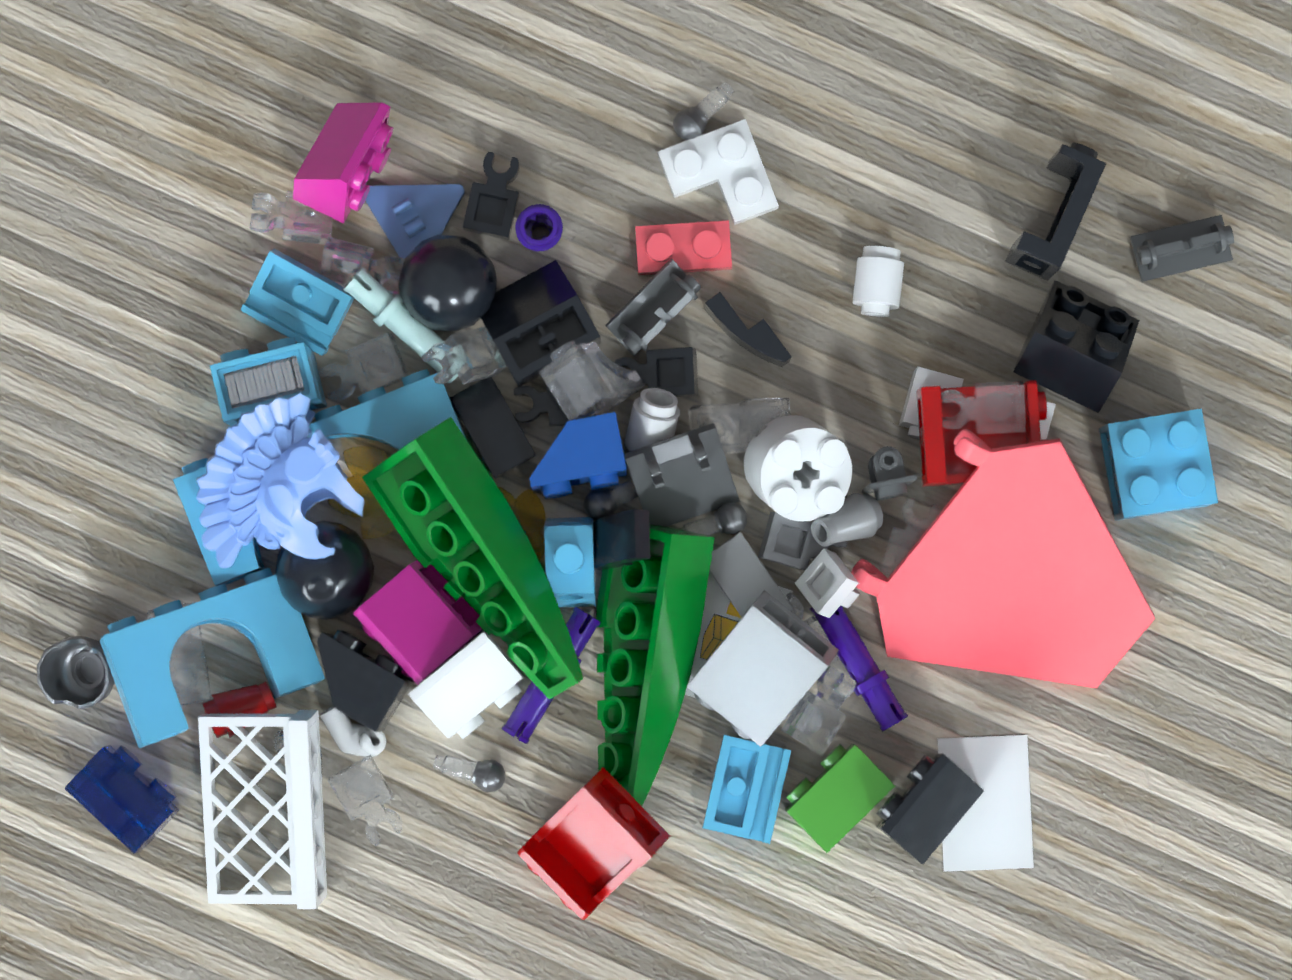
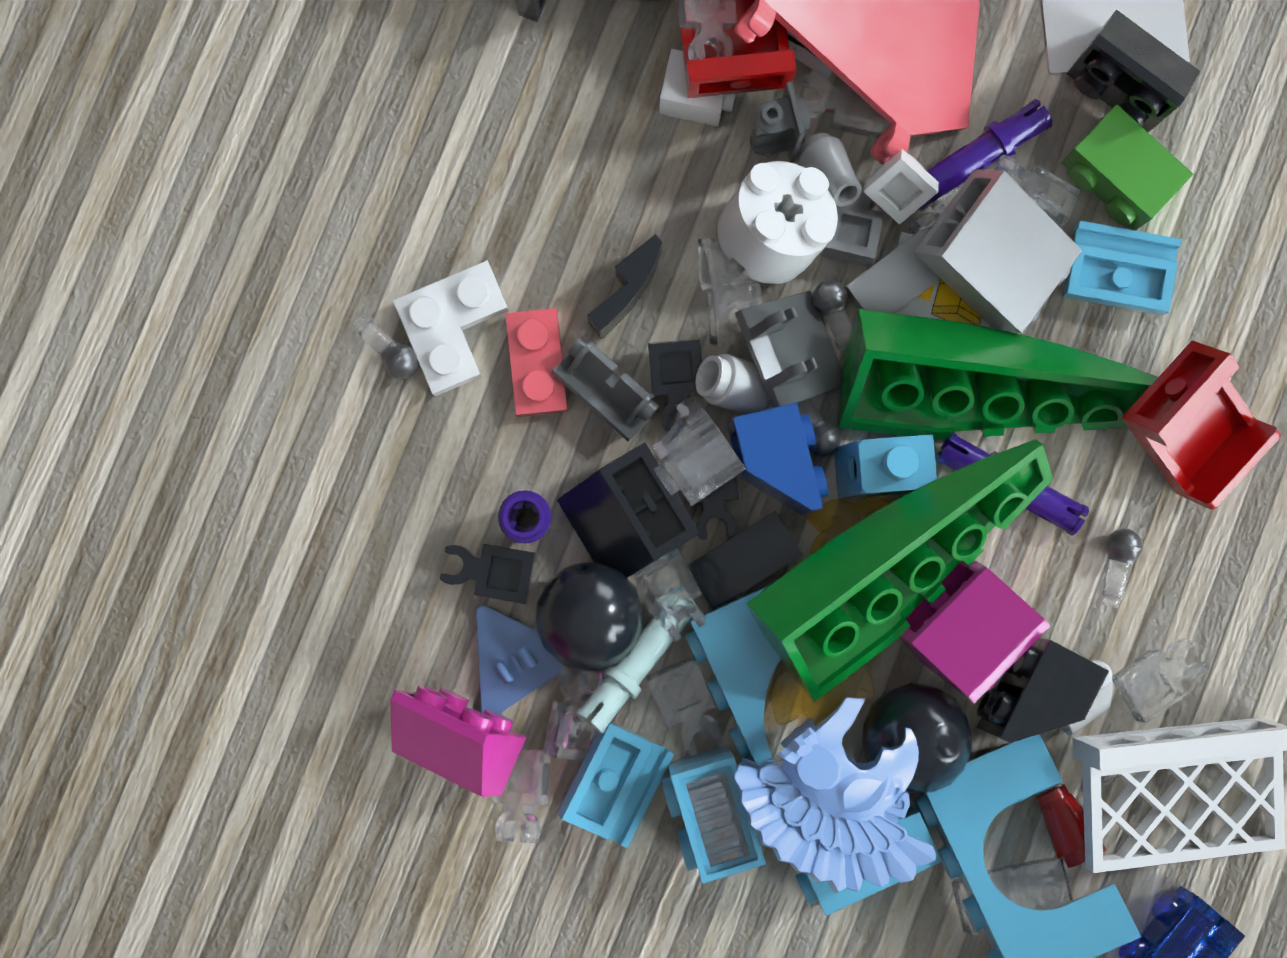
camera: 90 degrees left, 0 degrees up
(467, 687) = (1039, 571): white slope -> none
(621, 539) = (869, 406): black slope -> none
(878, 280) = (565, 149): white brick -> none

